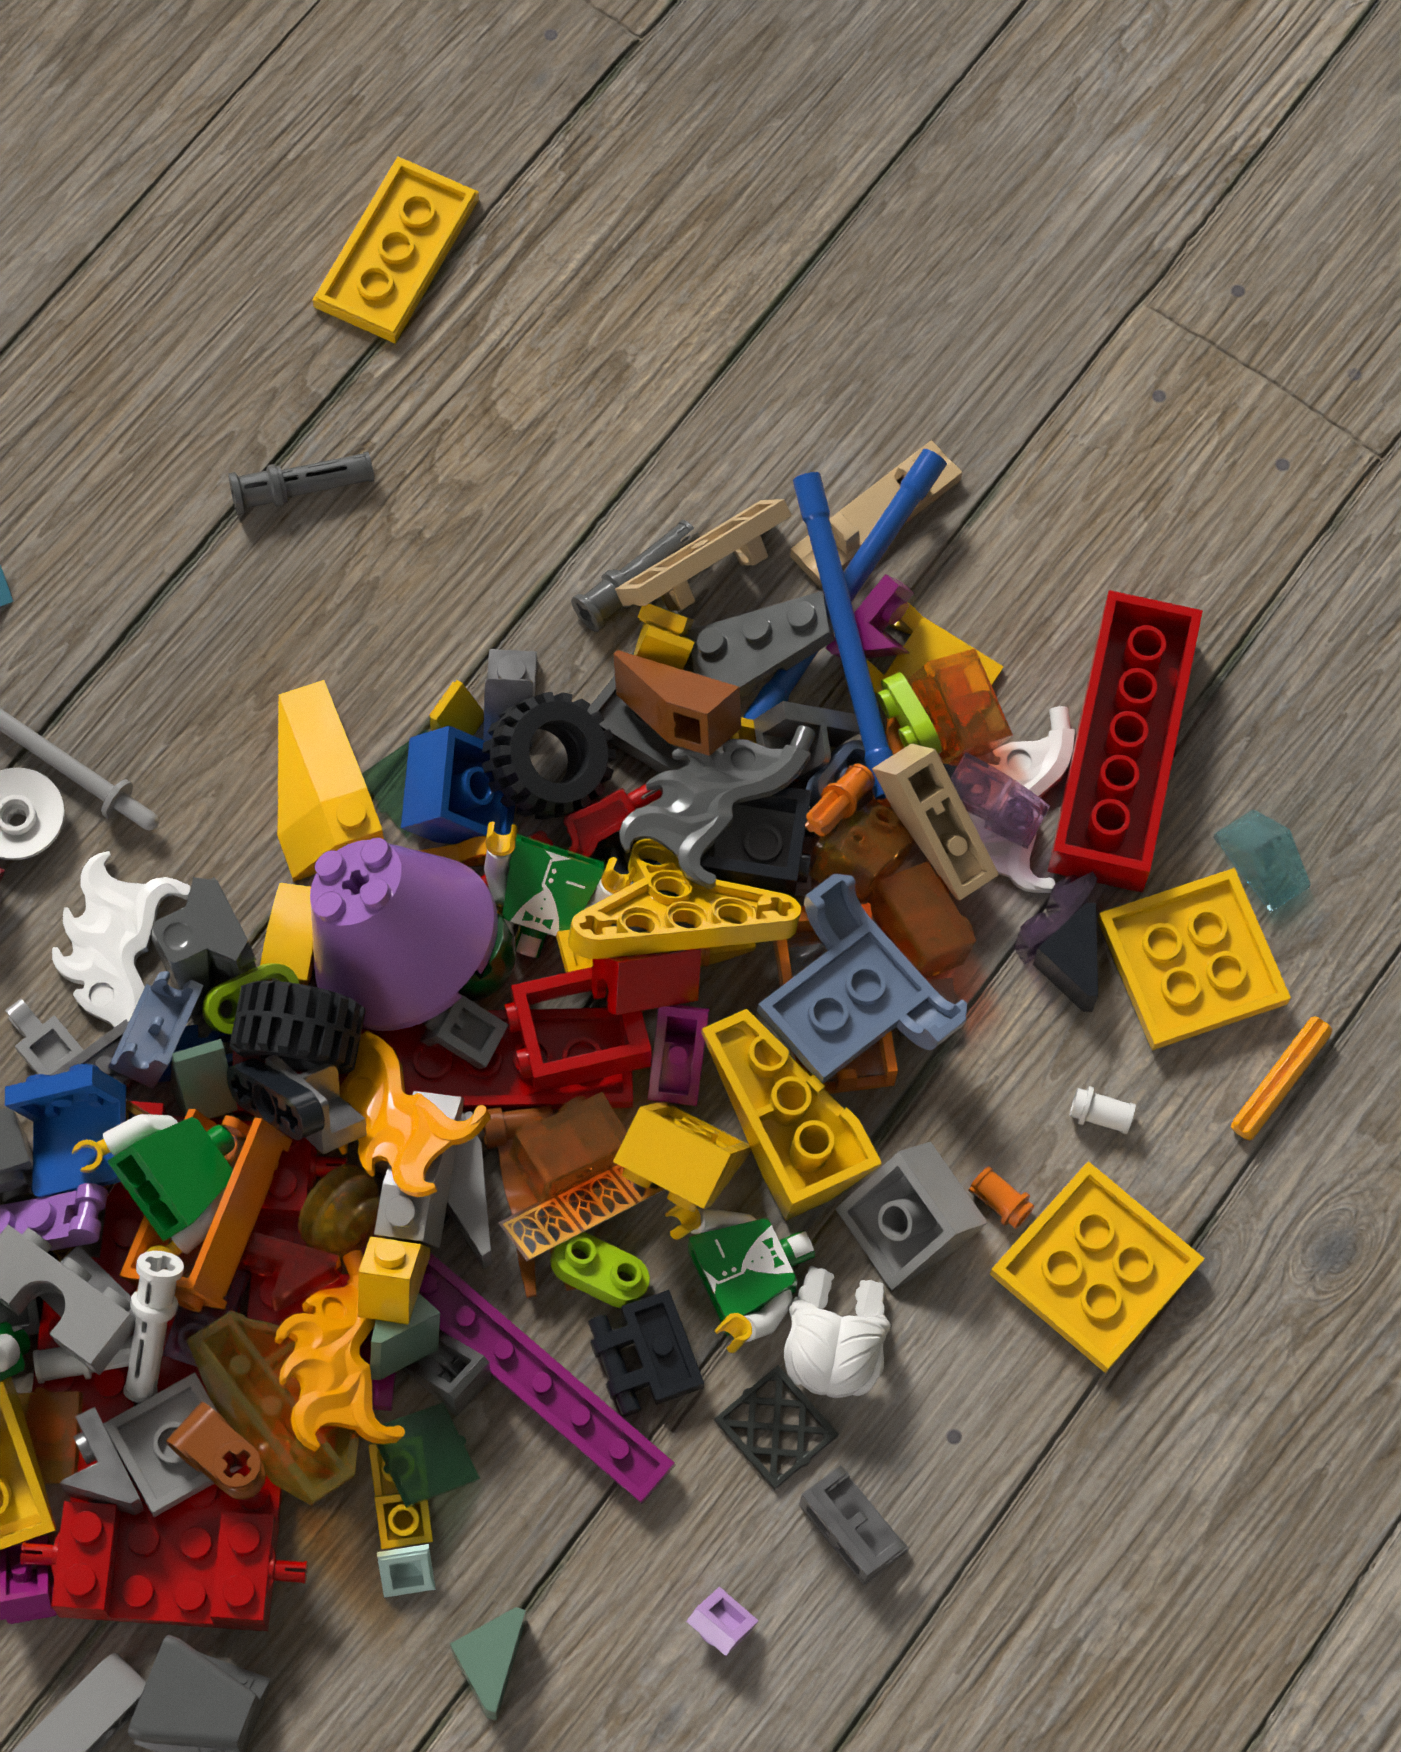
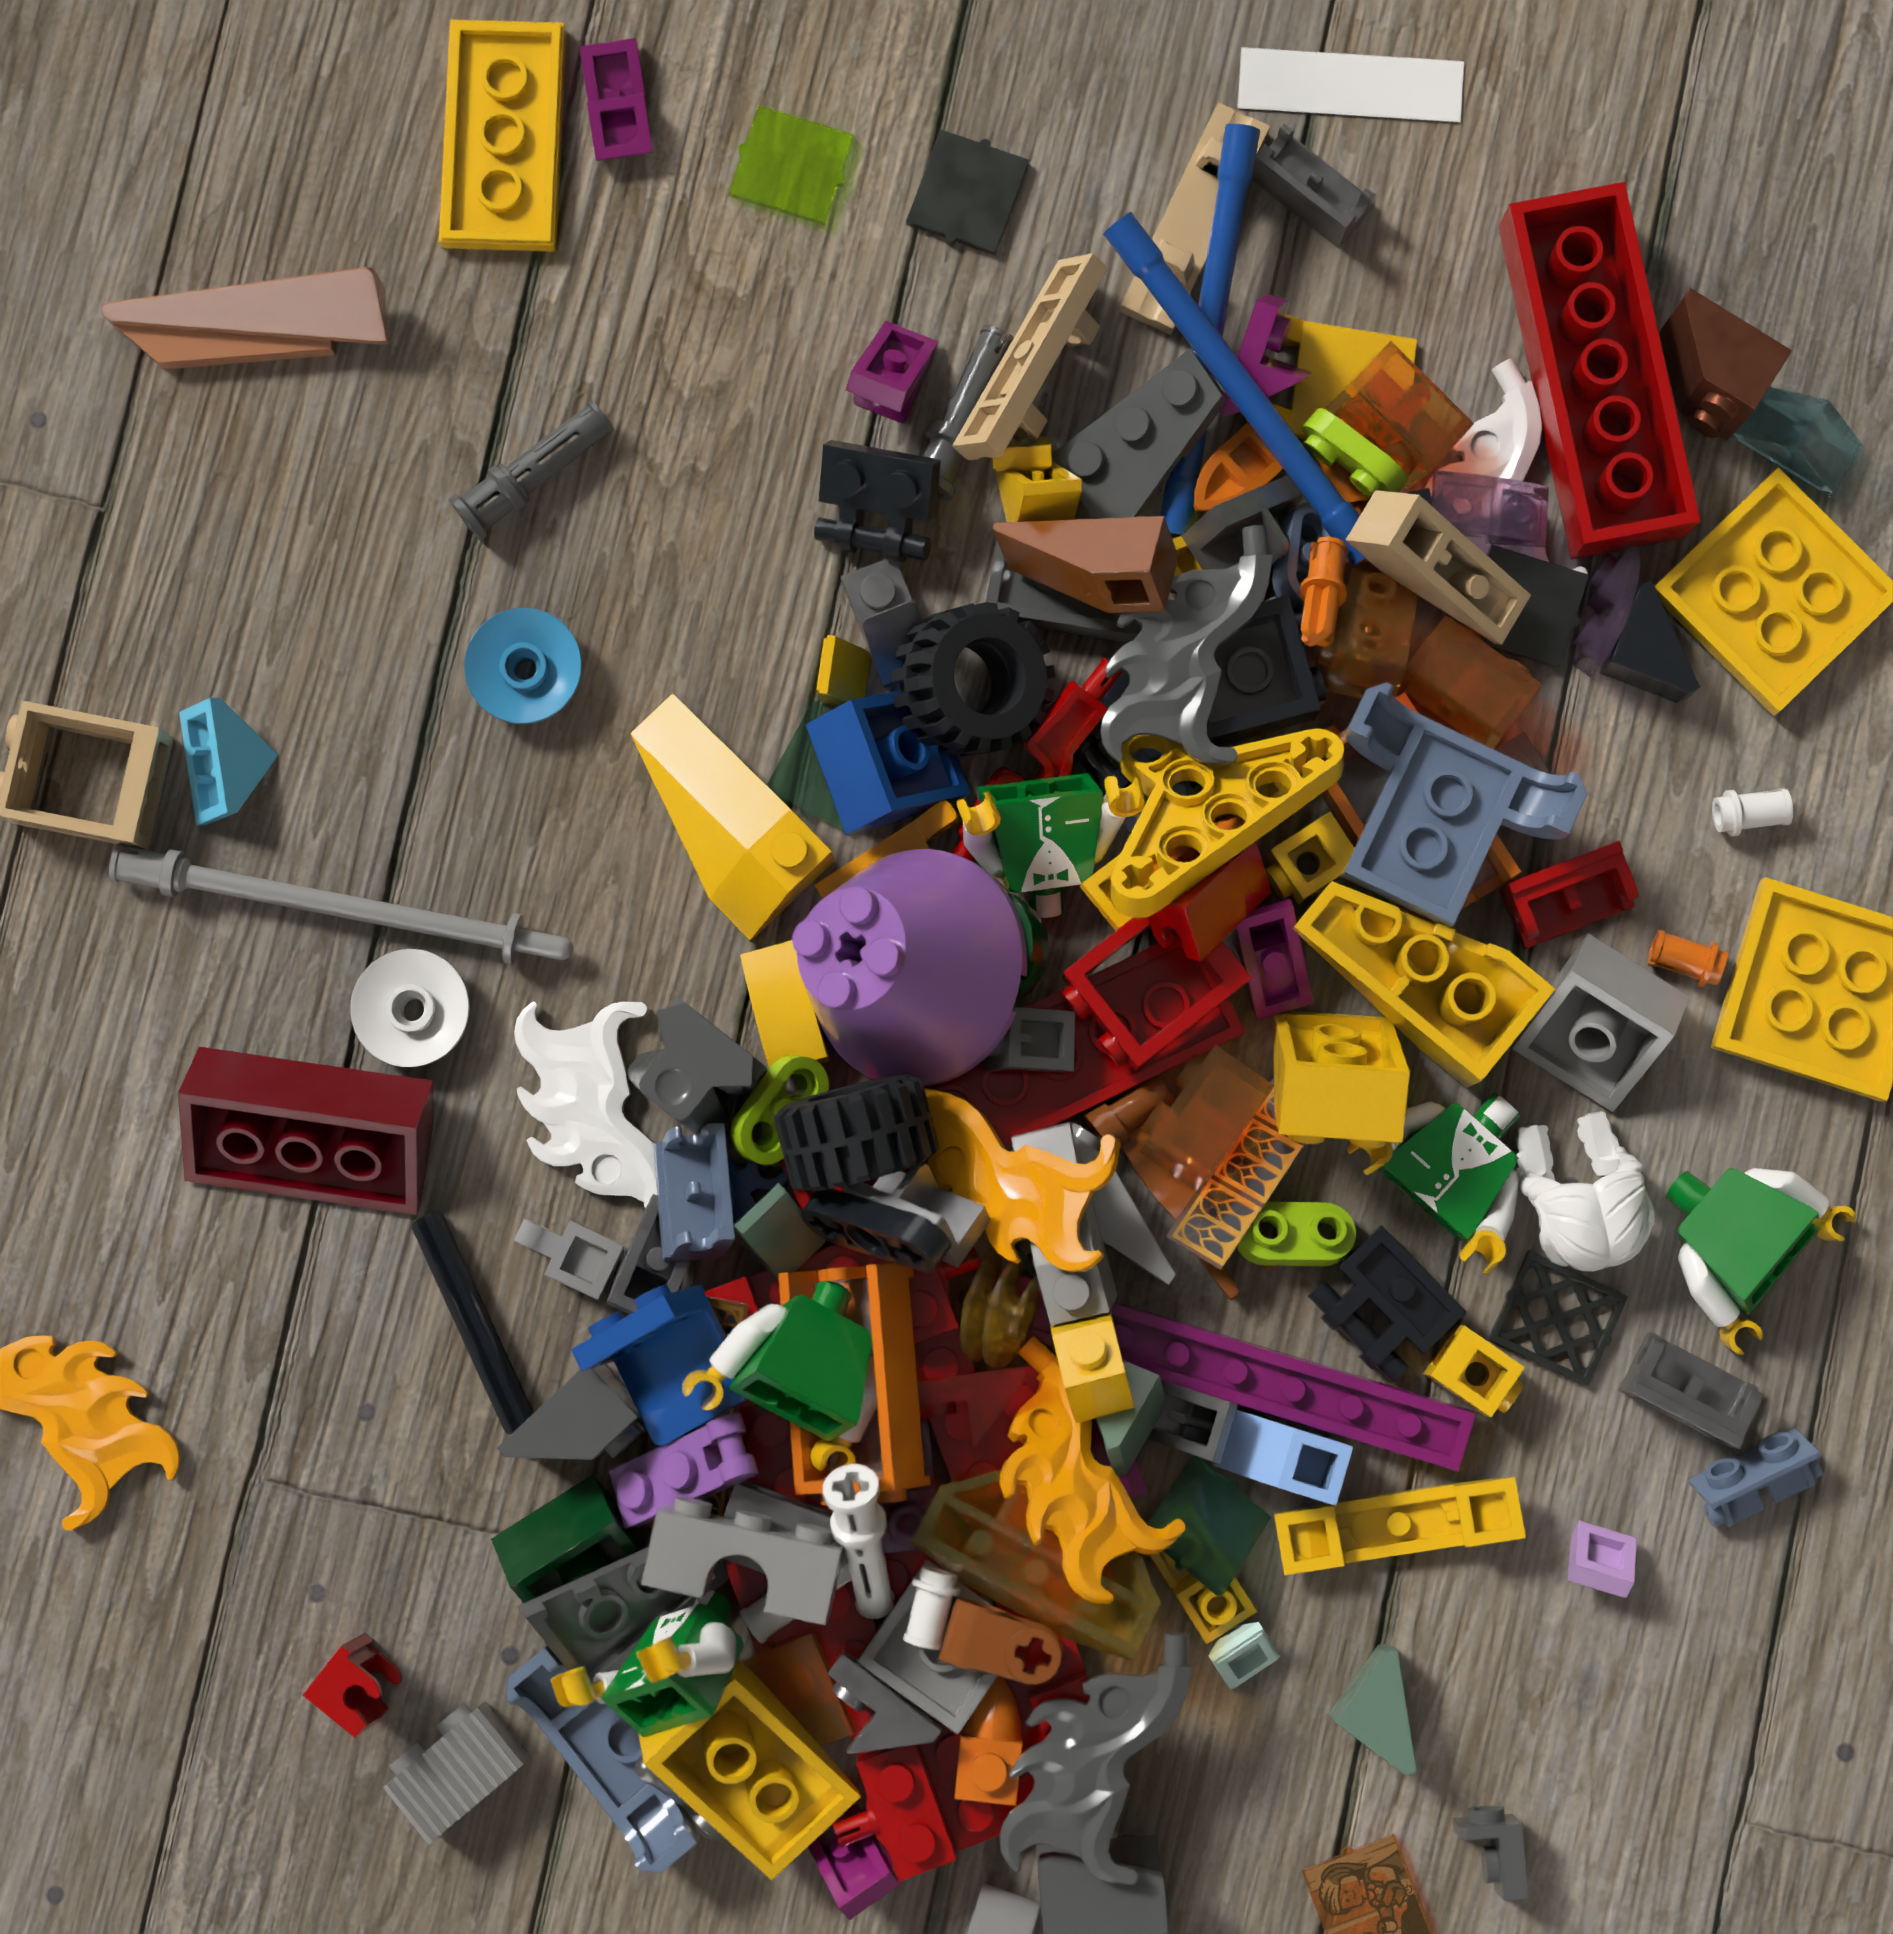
camera: 15 degrees left, 15 degrees up
(154, 295) = (256, 319): none -> nougat wedge
(173, 1542) = (990, 1748): none -> orange plate
(179, 1402) = (931, 1607): none -> white pin
(219, 592) = (505, 643): none -> dark azure dish
(237, 1570) = (1083, 1757): none -> dark grey piece
(490, 258) = (616, 99): none -> magenta slope
(511, 1429) = (1286, 1457): none -> light blue slope
(551, 593) = (881, 483): none -> black plate
(573, 1524) = (1399, 1524): none -> yellow slope
(596, 355) = (791, 165): none -> clear neon green piece
(597, 524) = (891, 371): none -> magenta slope
(686, 1415) = (1502, 1372): none -> yellow brick
(717, 427) = (967, 192): none -> pearl dark grey piece
(748, 983) = (1322, 841): none -> yellow brick
(819, 690) = (1235, 469): none -> orange plate
(895, 1613) = (1780, 1462): none -> sand blue hinge
(931, 1110) = (1570, 895): none -> red hinge
(949, 1420) = (1746, 1238): none -> green torso
(973, 526) = (1311, 187): none -> flat silver hinge
(1008, 898) = (1549, 613): none -> pearl dark grey piece
(1039, 471) = (1350, 84): none -> white sticker
(1221, 774) = (1717, 365): none -> copper slope

